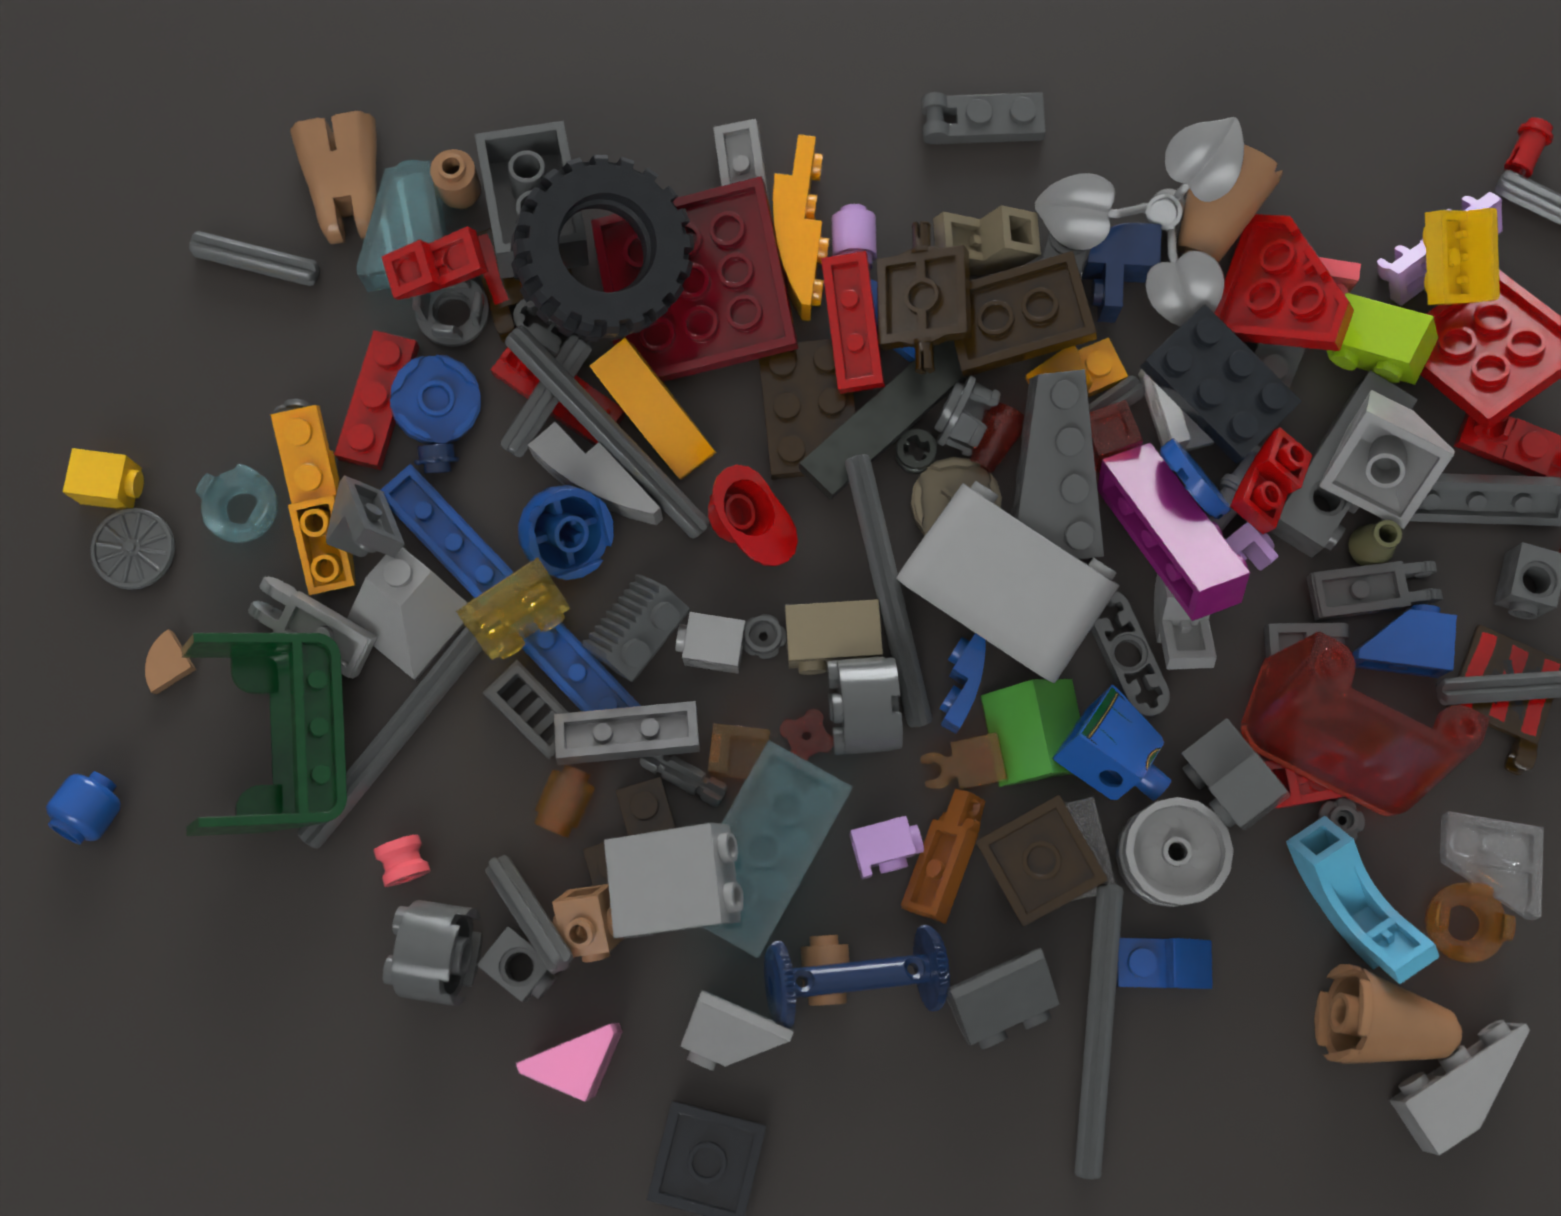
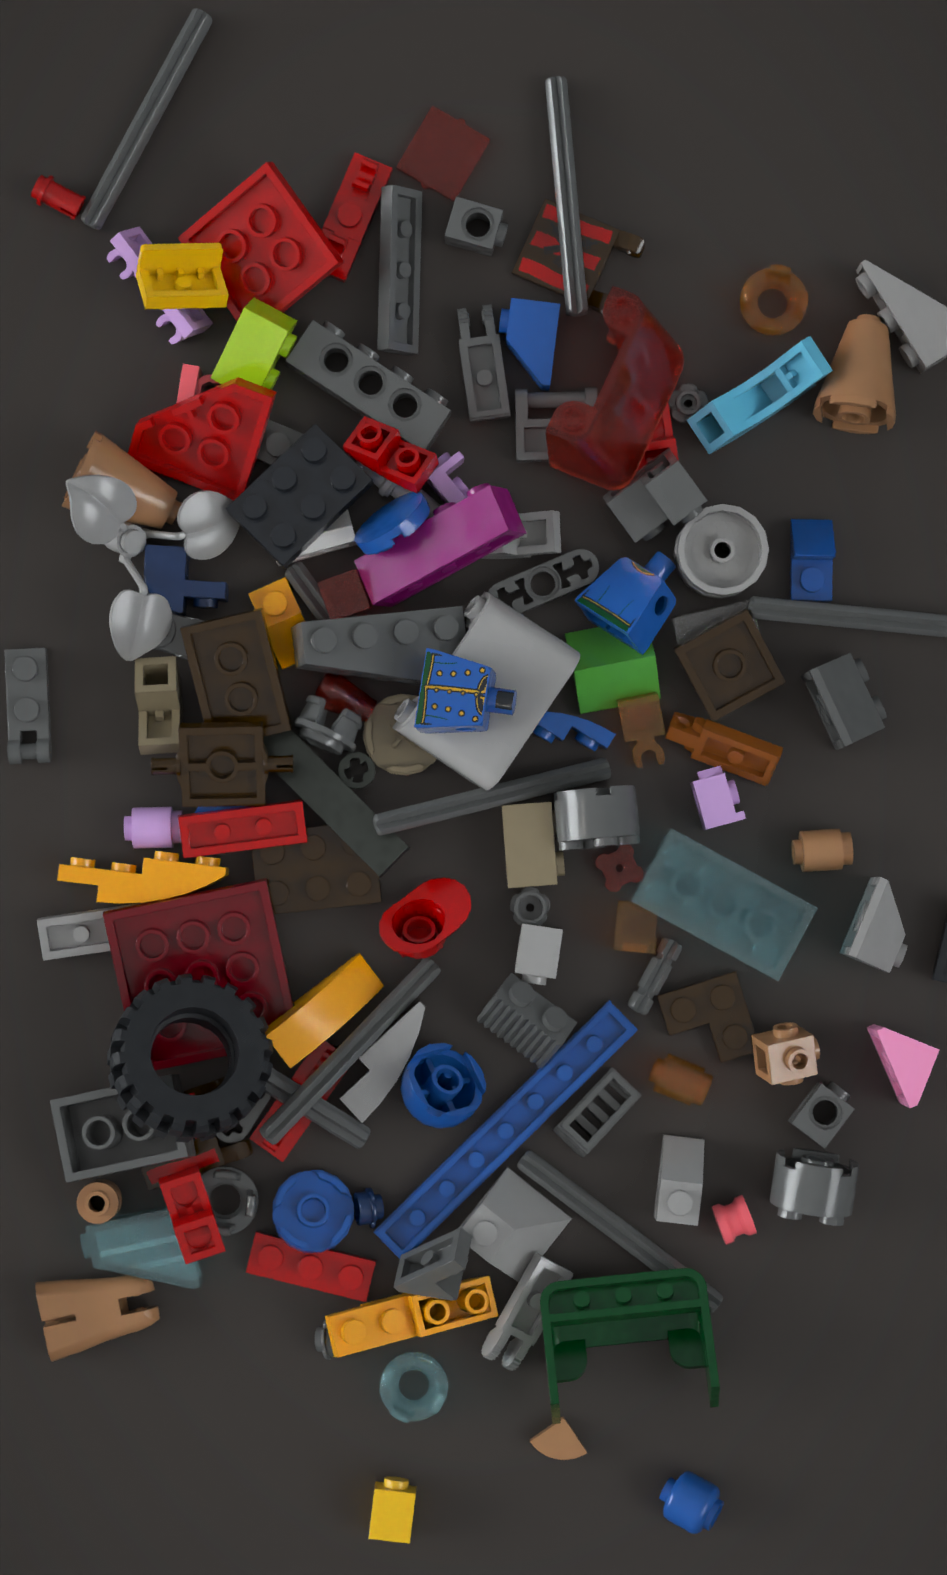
camera: 95 degrees left, 10 degrees up
(132, 548) = (454, 1481): dark grey wheel -> none
(254, 258) = (173, 1389): dark grey axle -> none
(448, 798) = (680, 1180): none -> light grey slope
(514, 610) = (525, 1134): clear yellow plate -> none
(529, 914) = (779, 1106): dark grey axle -> none
(626, 733) = (622, 1025): flat silver plate -> none
(673, 880) = (755, 981): light grey panel -> none
(928, 961) = (830, 824): dark blue hose -> none
(1005, 537) = (459, 695): none -> blue torso
(1374, 542) = (441, 372): olive cone -> none
(1387, 460) = (375, 355): light grey slope -> none
(1497, 855) = (719, 273): clear wing -> none

